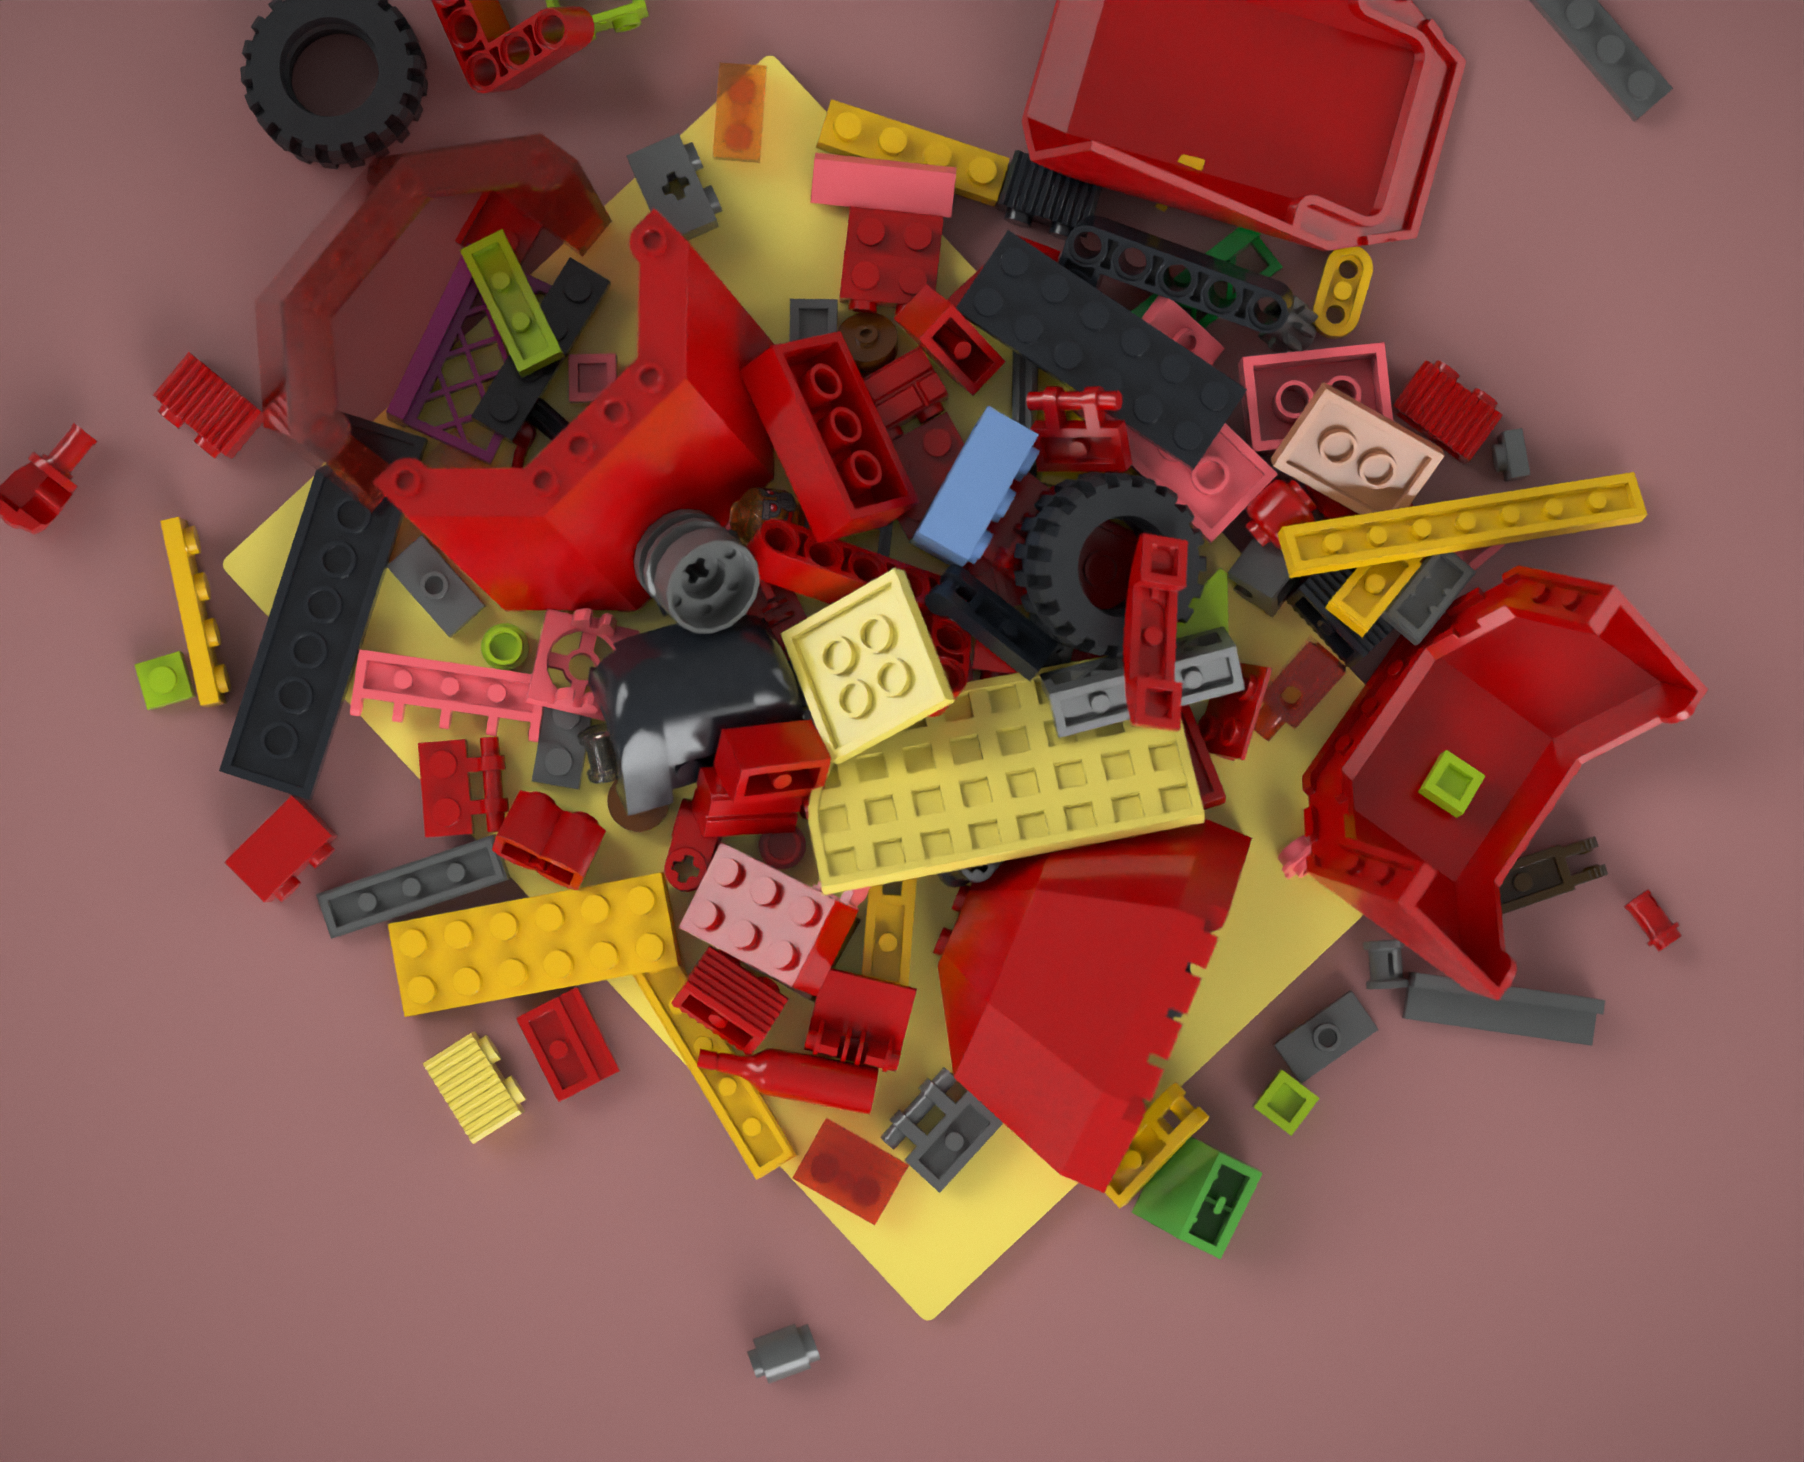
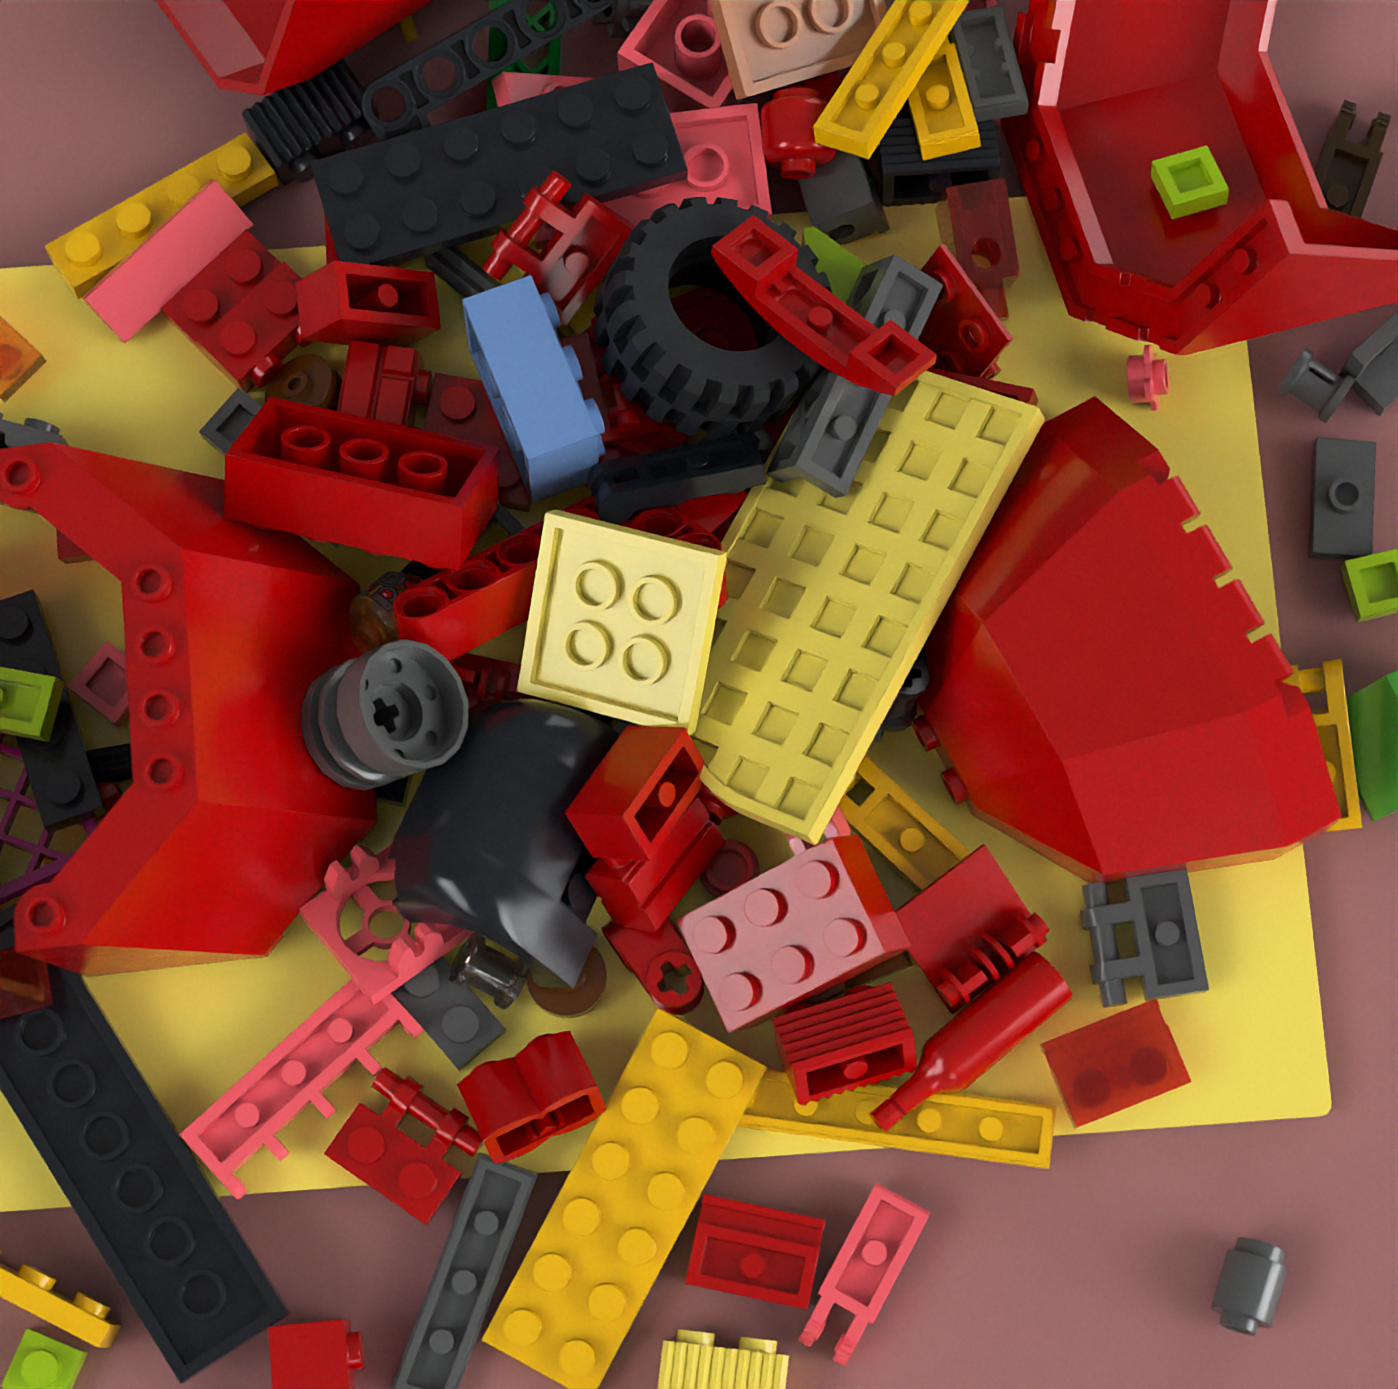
camera: 50 degrees left, 10 degrees down
(436, 586) = (183, 1007): dark grey plate -> none
(505, 646) = (301, 986): lime plate -> none
(613, 1117) = (867, 1266): none -> coral hinge

